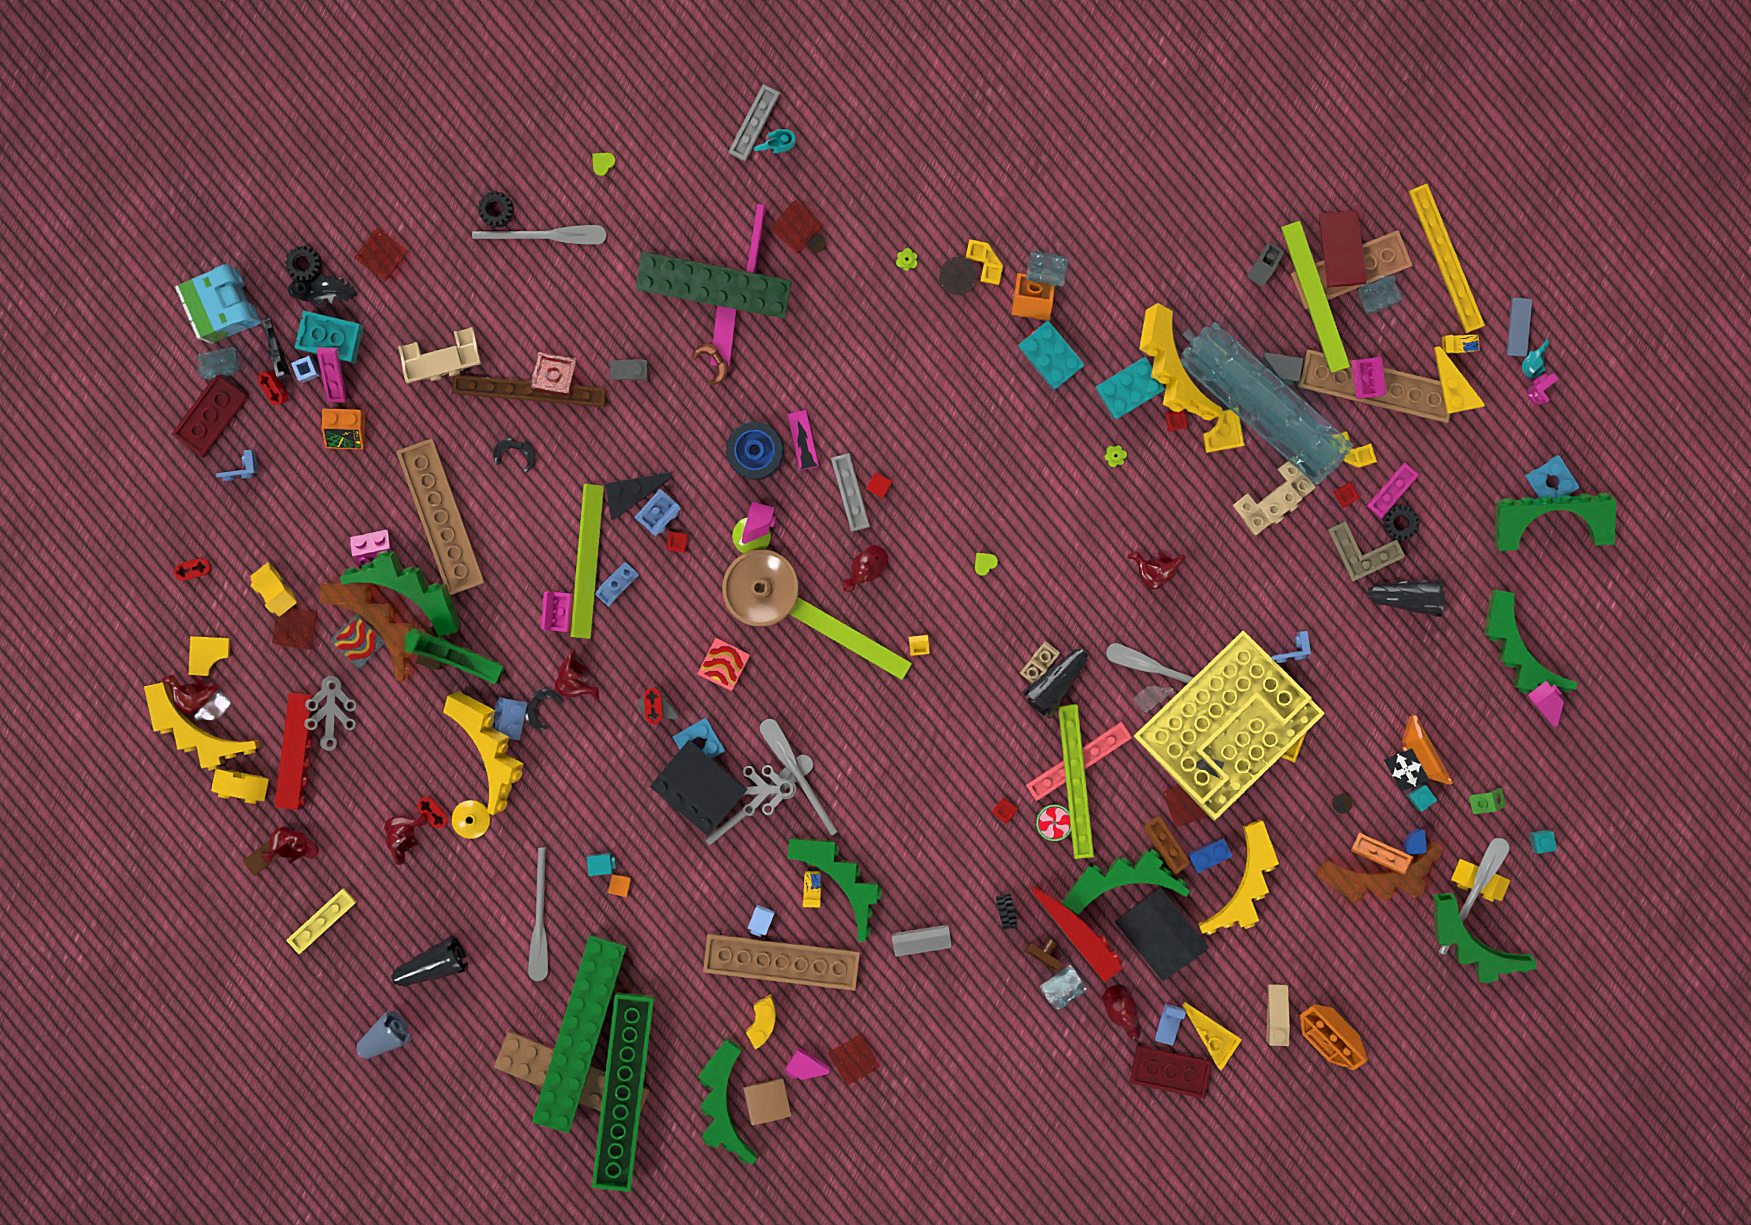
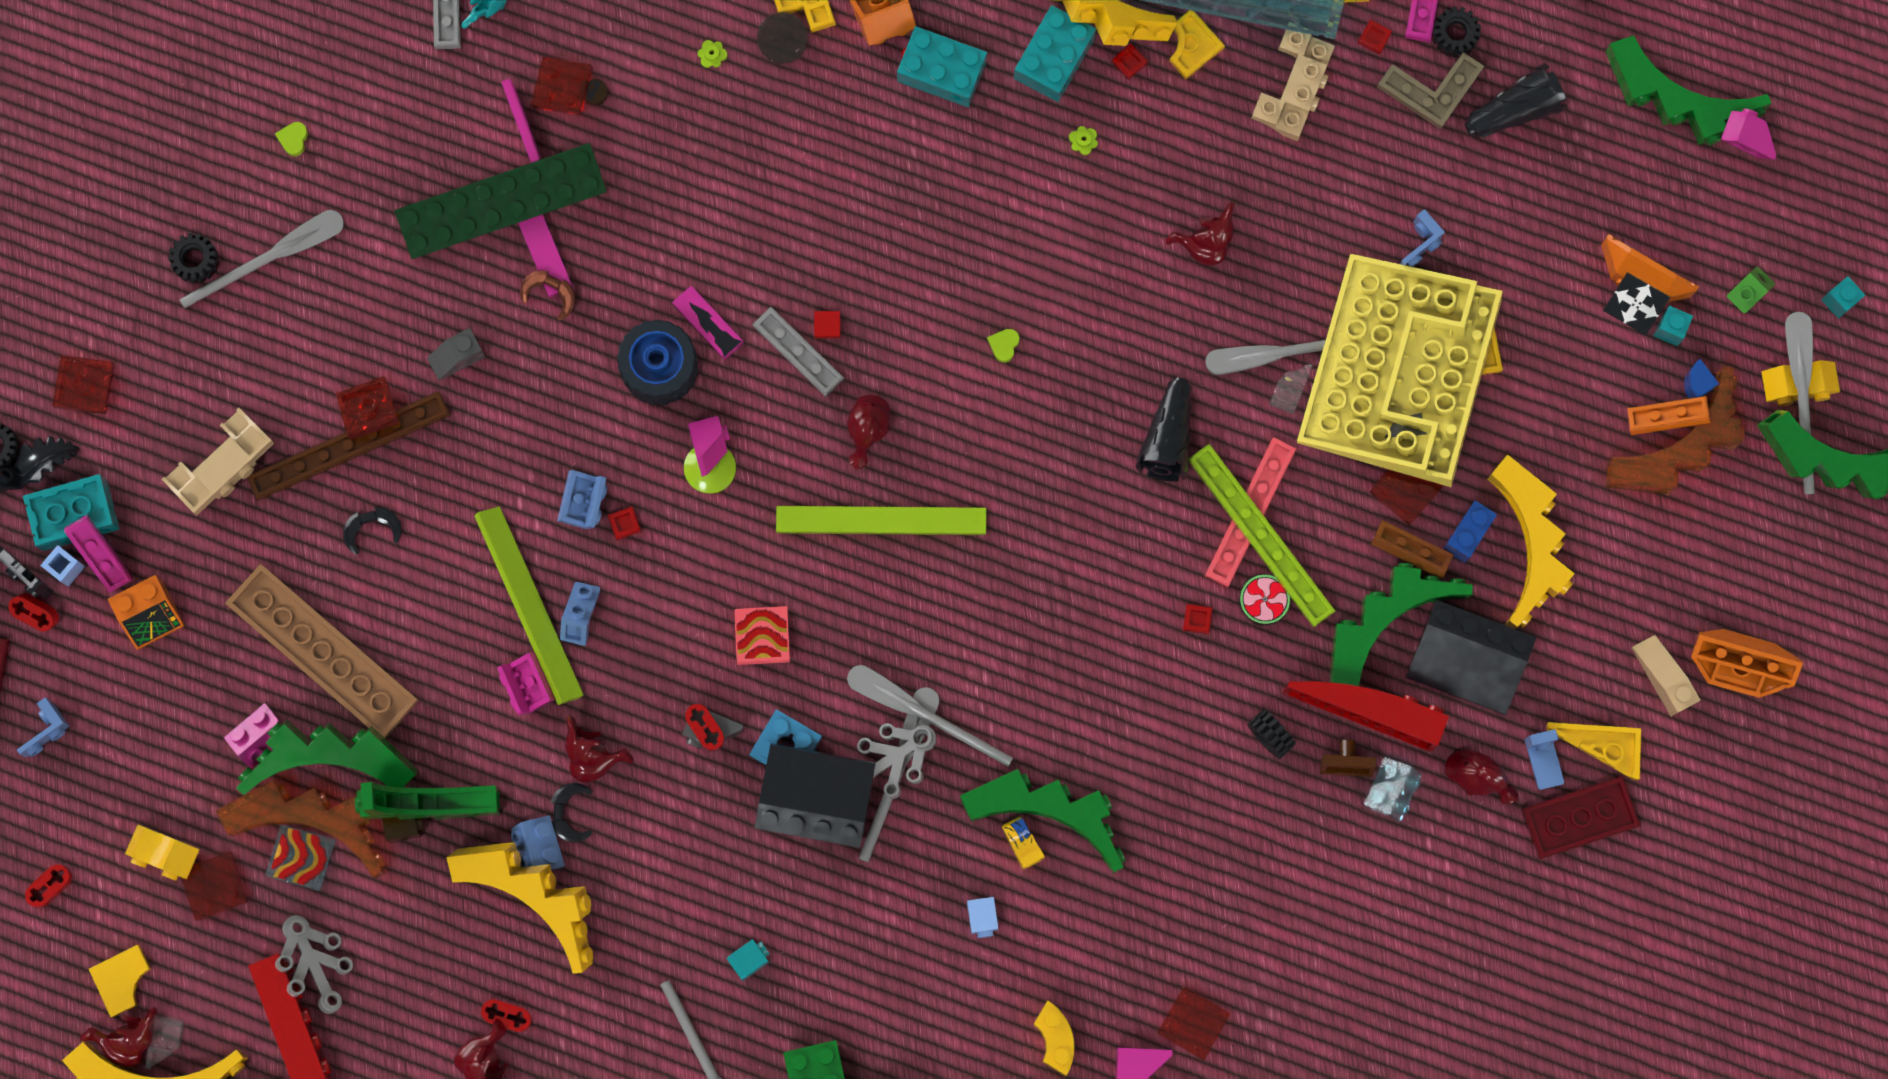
camera: 30 degrees left, 10 degrees down
(480, 817) = (572, 998): yellow dish -> none
(619, 885) = (786, 974): orange tile -> none
(626, 493) = (532, 499): black wing -> none
(760, 588) = (755, 518): medium nougat dish -> none
(781, 962) = (1036, 953): medium nougat plate -> none
(919, 645) = (982, 481): yellow plate -> none
(921, 940) = (1190, 831): light grey panel -> none
(1040, 662) = (1136, 422): tan slope -> none
(1342, 803) = (1586, 386): dark brown tile -> none

